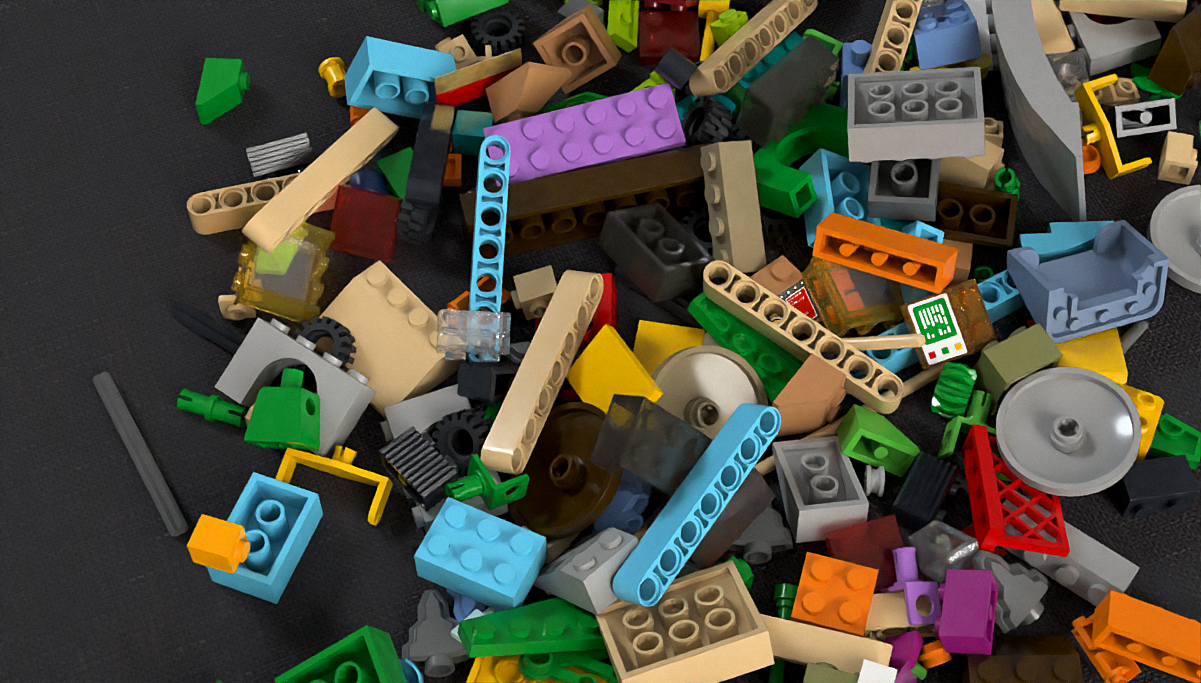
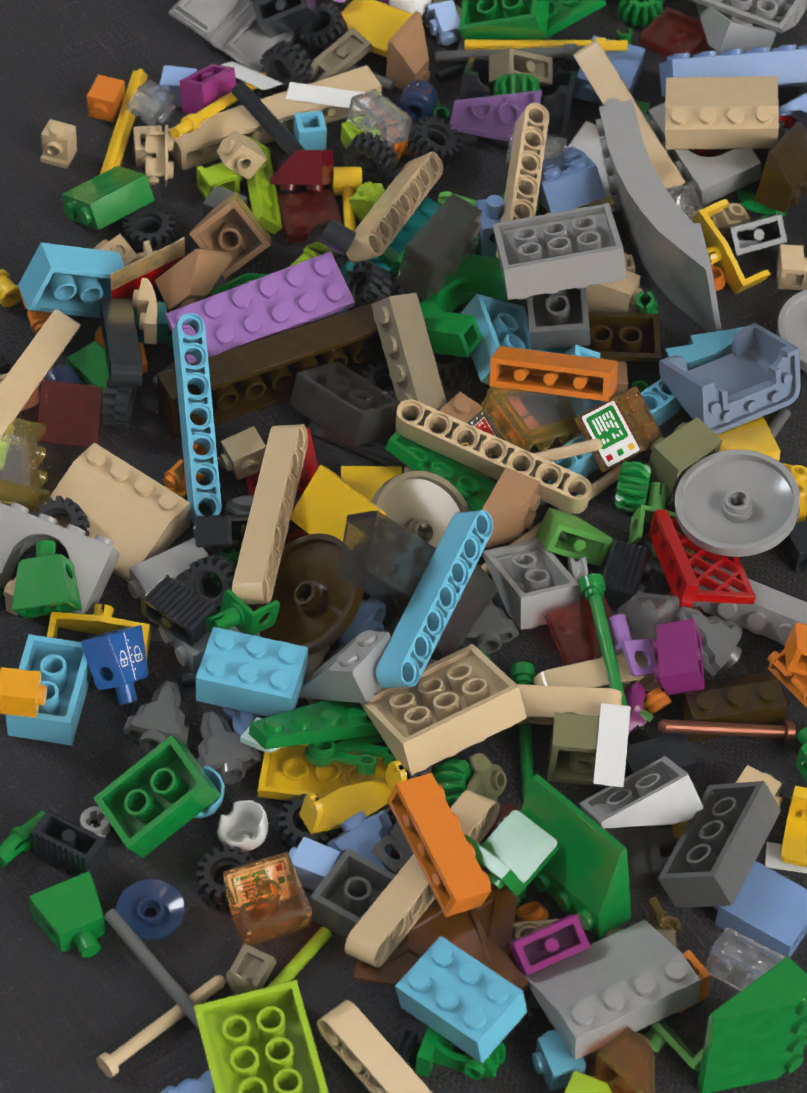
camera: 15 degrees left, 5 degrees down
(343, 515) = (117, 661): none -> blue torso
(376, 590) = (158, 719): none -> dark grey rock
(468, 128) = (146, 306): none -> tan slope
(473, 334) = (200, 491): clear brick -> none
(834, 594) = (563, 660): orange plate -> none
(883, 511) = (593, 588): none -> green piece

